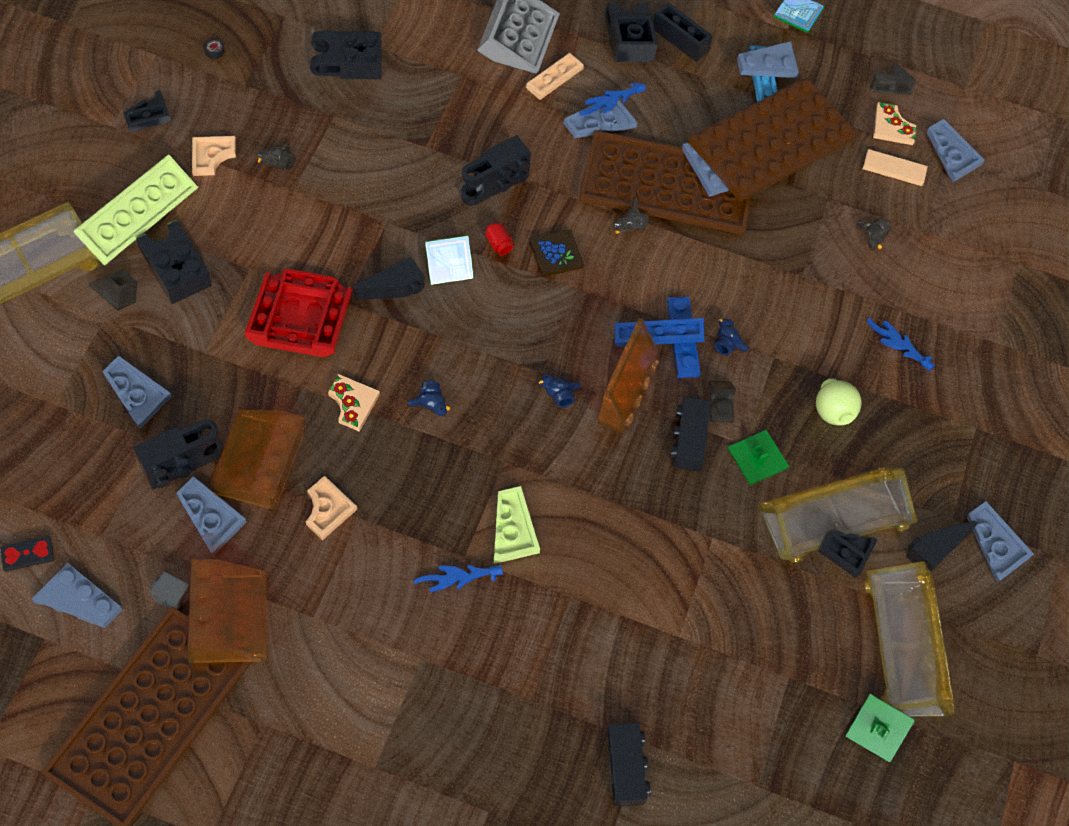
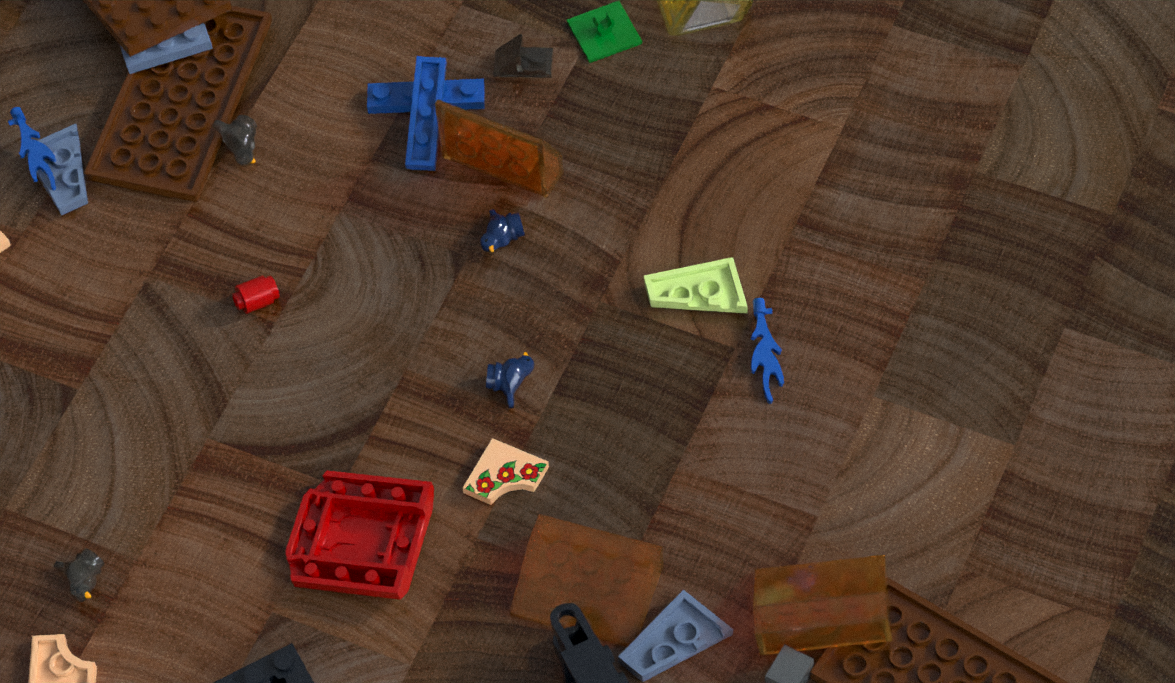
camera: 75 degrees left, 5 degrees down
(329, 509) = (663, 498): light nougat tile -> none
(392, 282) = (316, 413): black slope -> none
(449, 259) = (290, 349): piece -> none
(496, 170) = (147, 285): black brick -> none
(556, 253) = (282, 230): dark brown tile -> none
(627, 765) = (1007, 181): black brick -> none
(690, 434) = (574, 91): black brick -> none
(728, 338) = (434, 44): dark blue animal -> none

